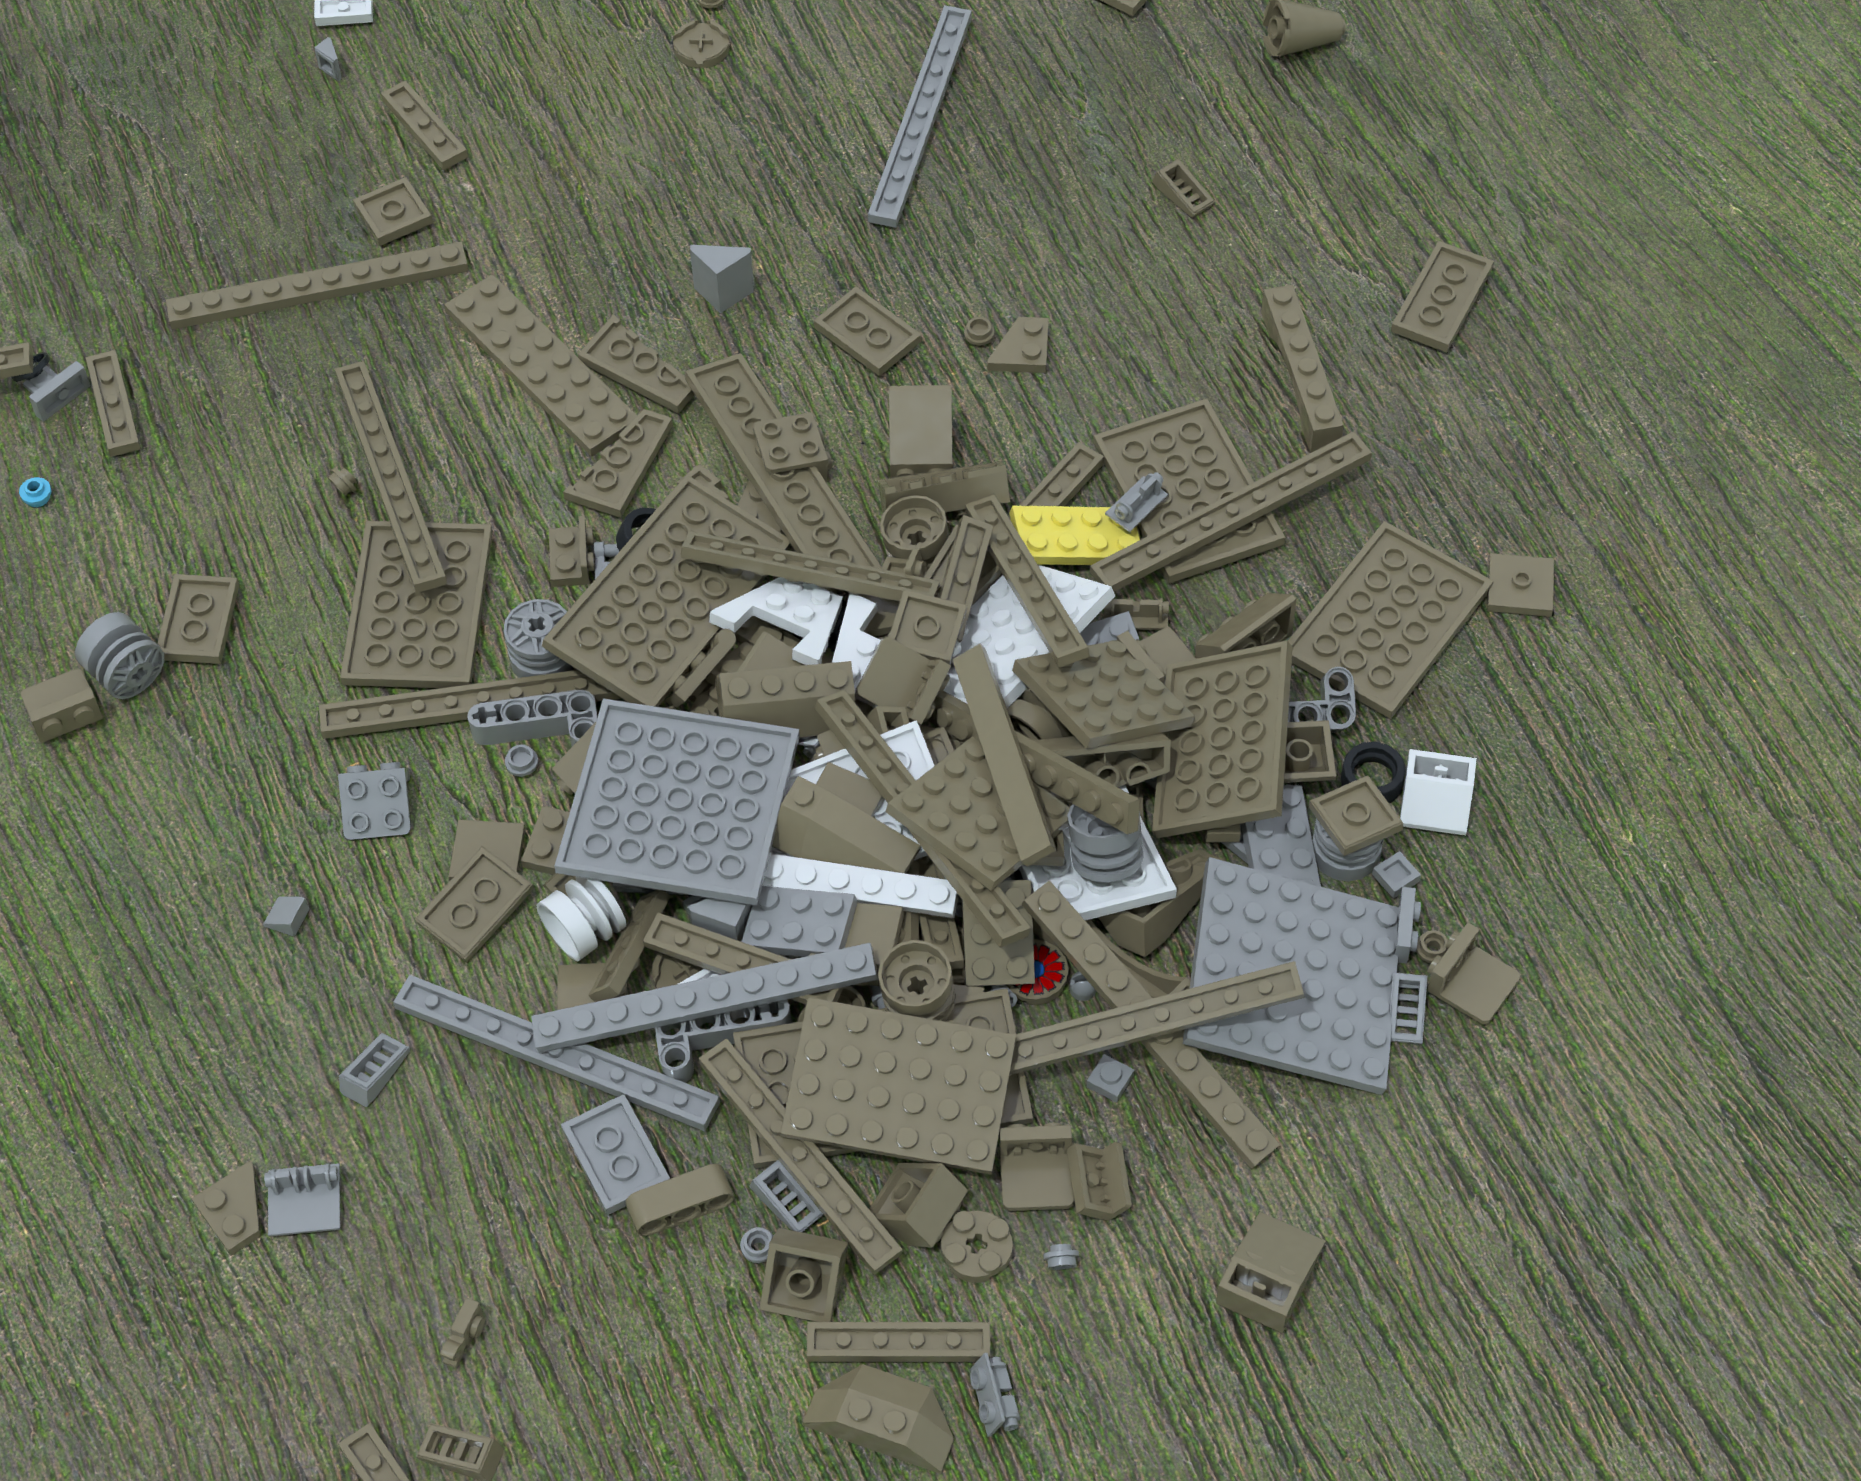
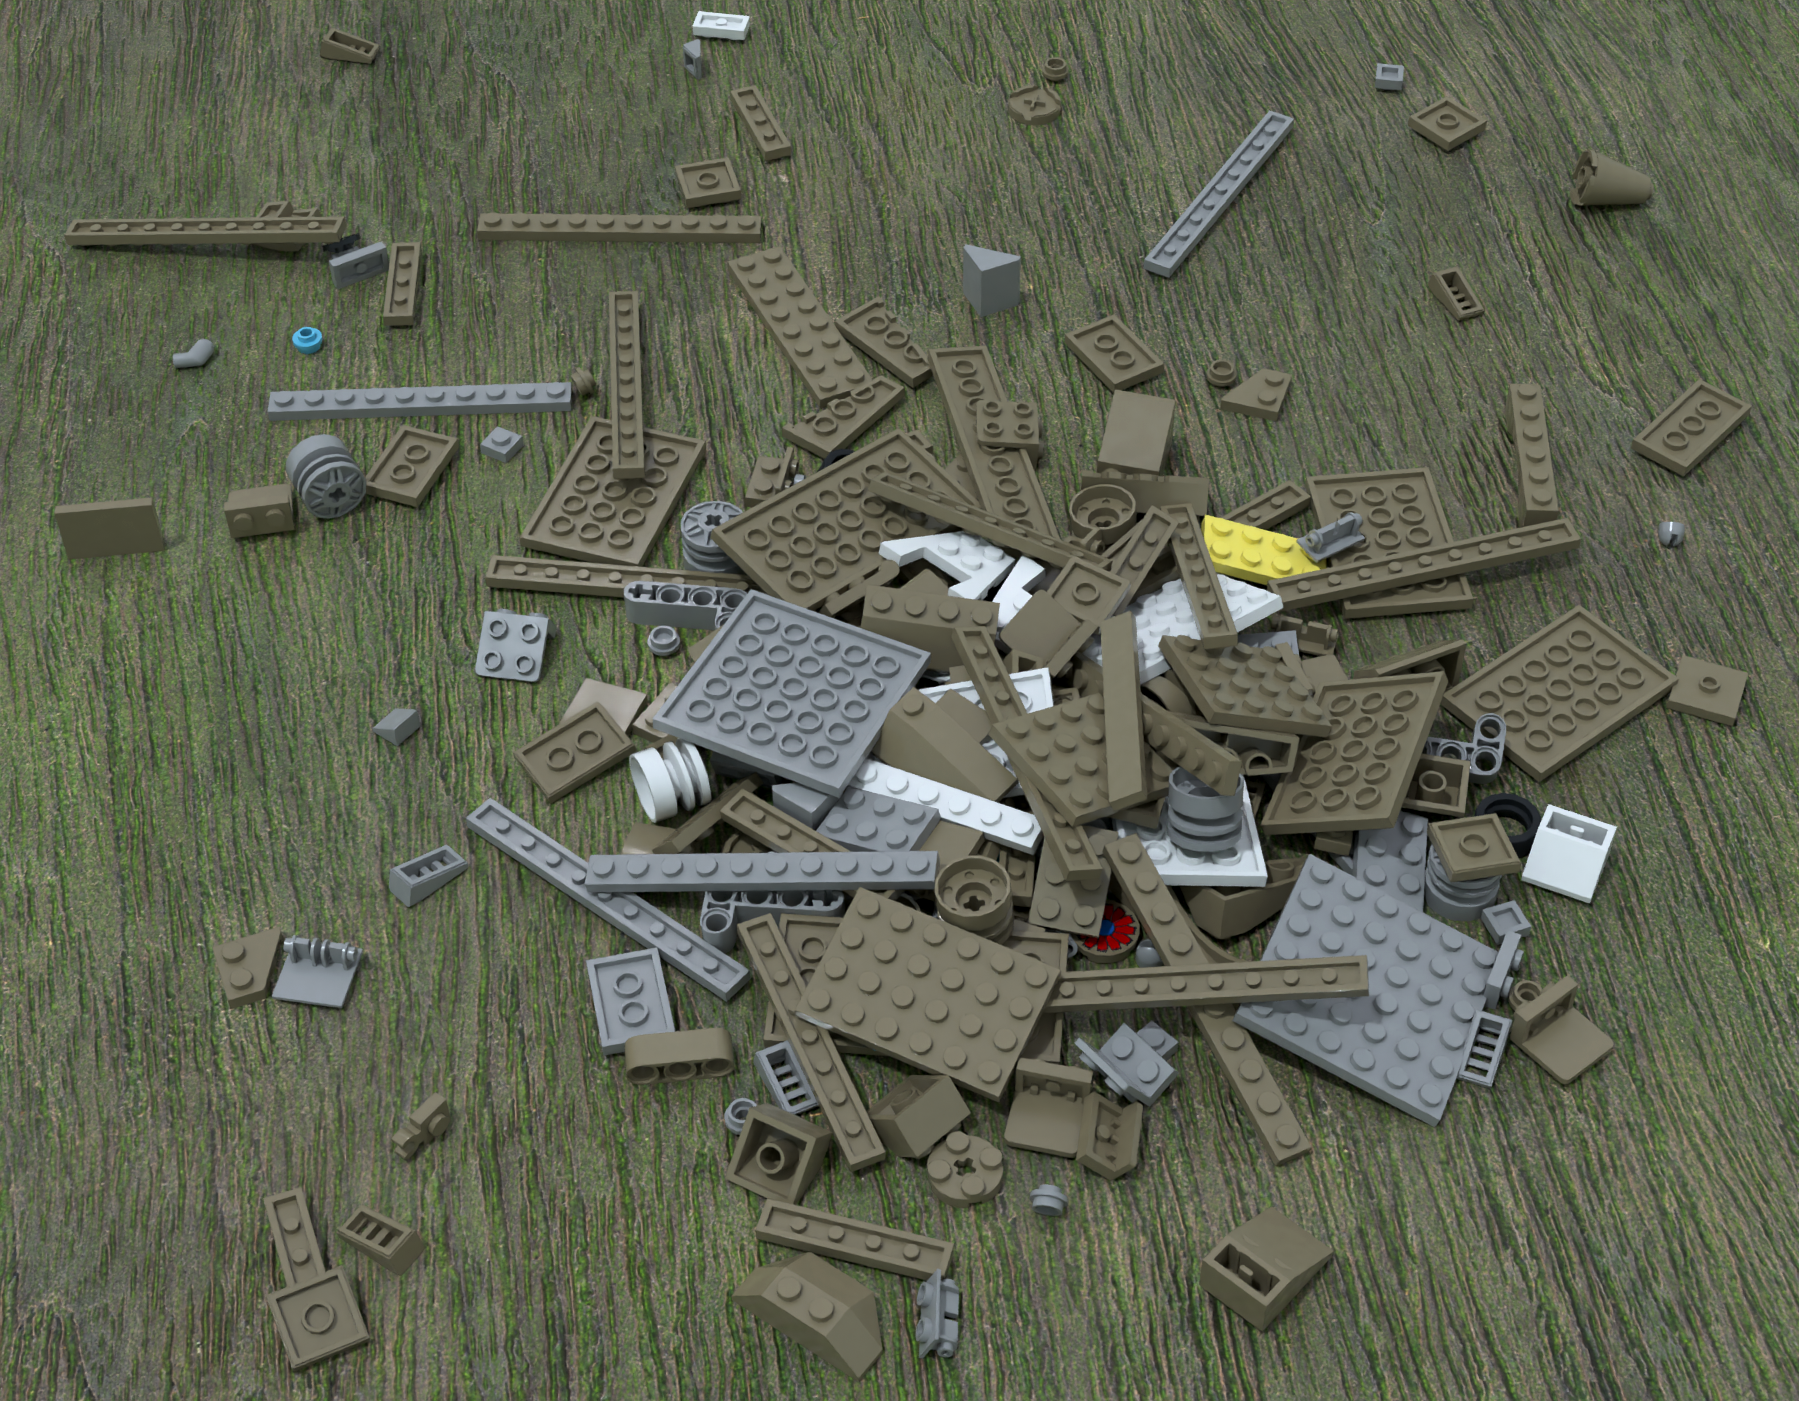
camera: 15 degrees right, 10 degrees down
(179, 539) = (420, 401): none -> light grey plate
(282, 571) = (501, 444): none -> light grey plate
(1098, 1106) = (1129, 1065): none -> light grey bracket
(1450, 421) = (1671, 532): none -> light grey hinge

